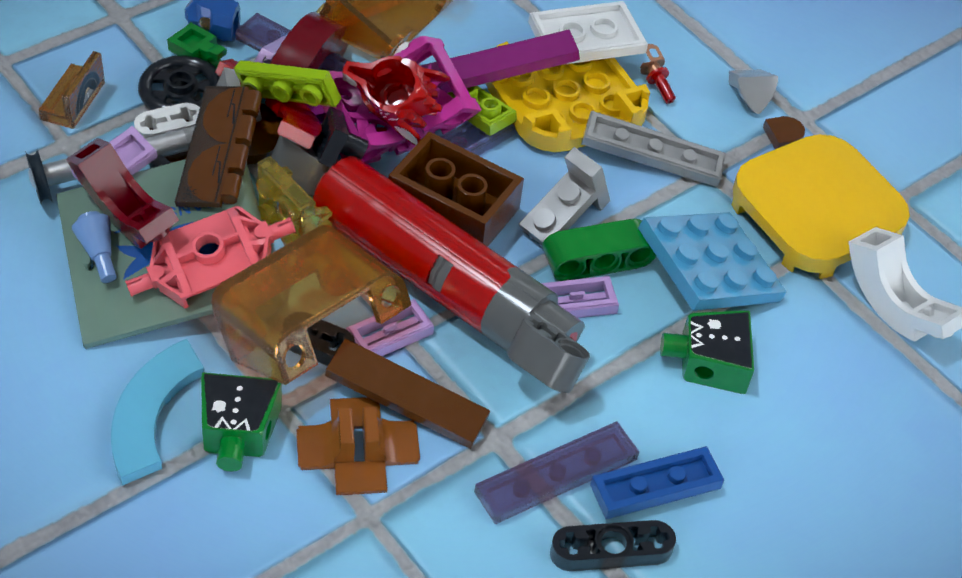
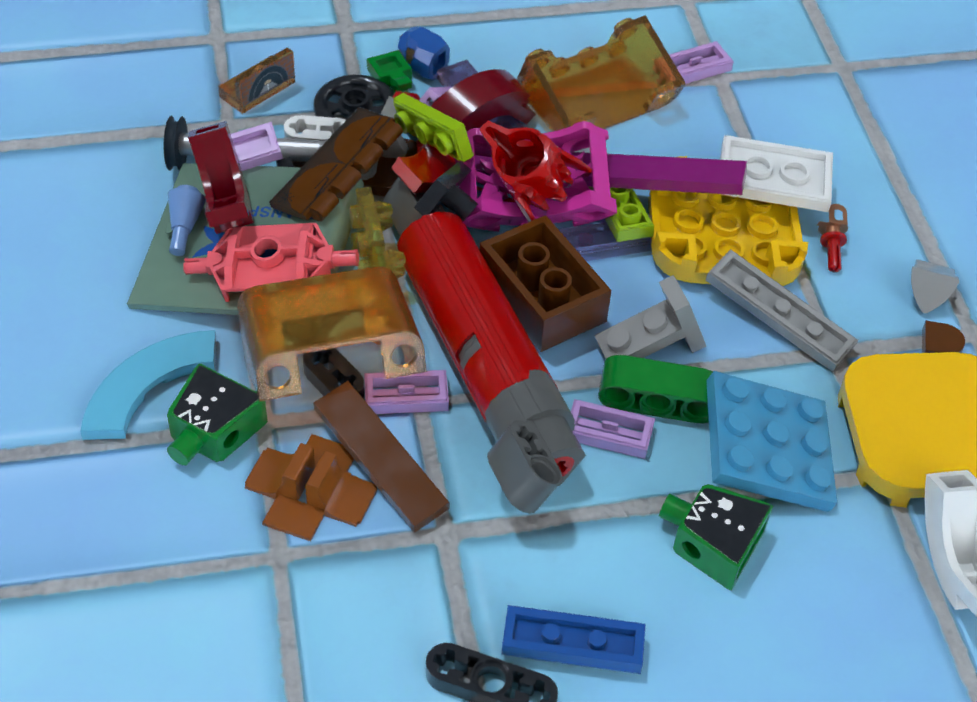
camera: 30 degrees right, 0 degrees up
(555, 472) = (481, 587): clear purple tile -> none

